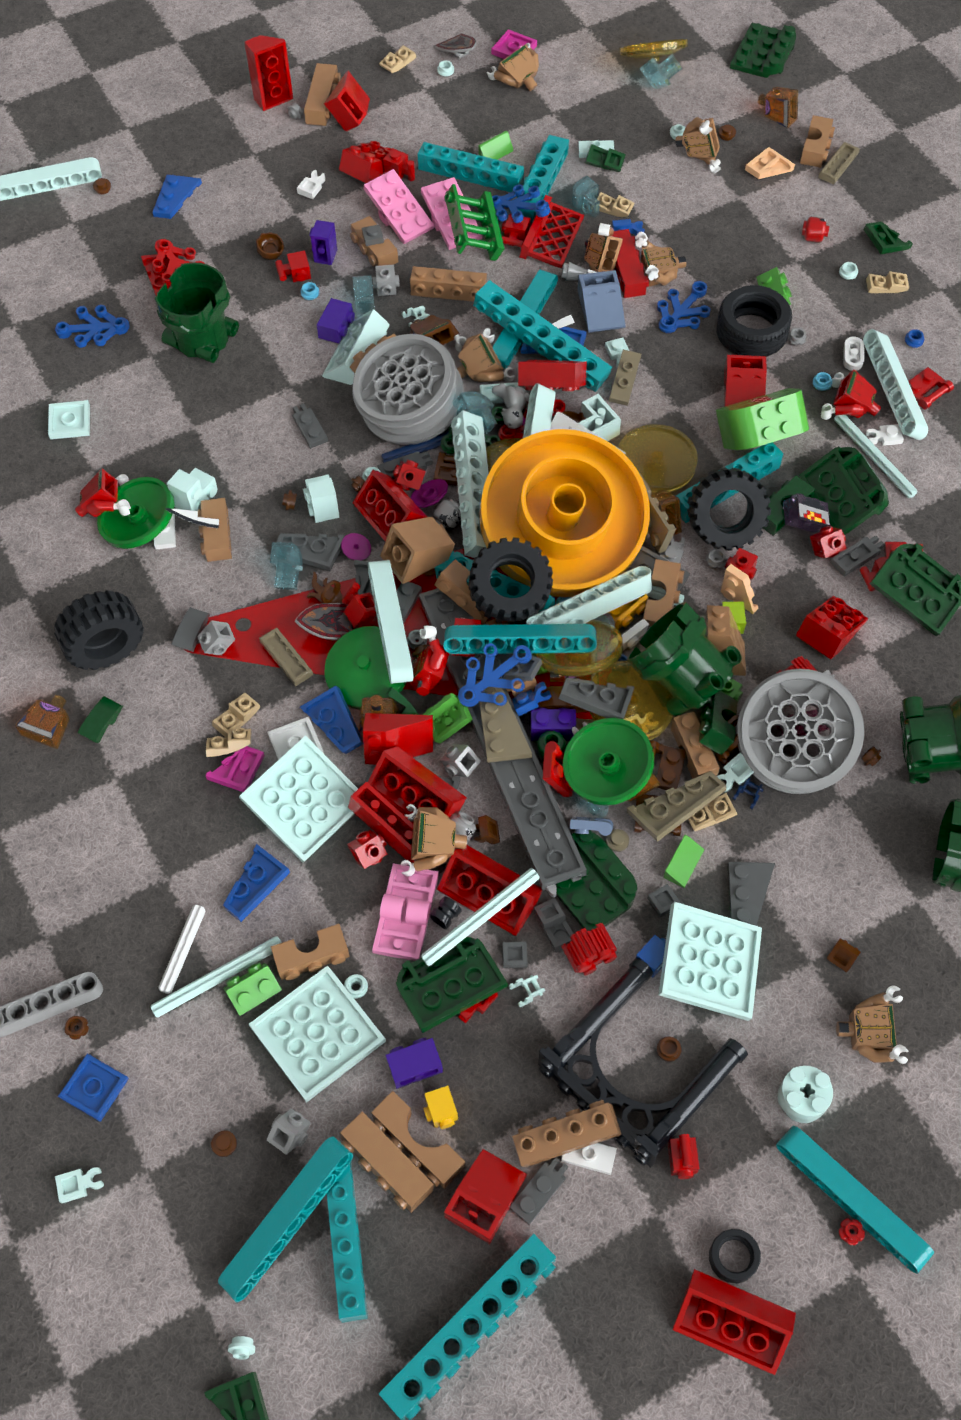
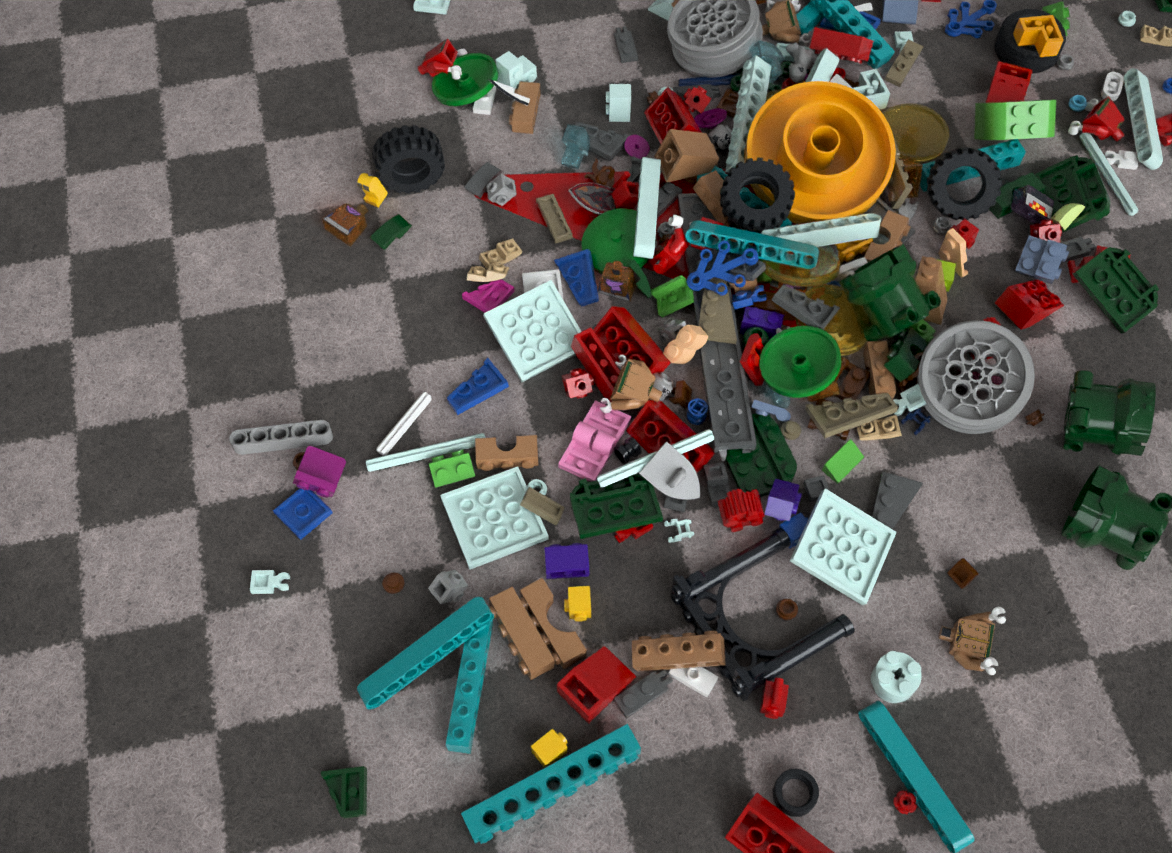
camera: 15 degrees right, 0 degrees up
(65, 673) = (372, 188): none -> yellow leg
(100, 1035) = (319, 472): none -> magenta bracket
(241, 1347) = (361, 745): light aqua plate -> none
(289, 500) = (592, 98): reddish brown plate -> none
(368, 1005) = (542, 506): none -> dark tan tile
(406, 731) = (637, 298): red slope -> none
(456, 1287) = (549, 748): none -> yellow brick
(477, 773) = (685, 345): none -> light nougat brick
(503, 929) = (672, 474): none -> shield
(507, 850) = (694, 415): none -> blue wheel
(632, 926) = (783, 500): none -> dark purple brick
(764, 313) = (1041, 32): none -> light orange brick
(832, 573) = (1042, 259): none -> sand blue plate
(845, 516) = (1067, 214): none -> yellowish green brick

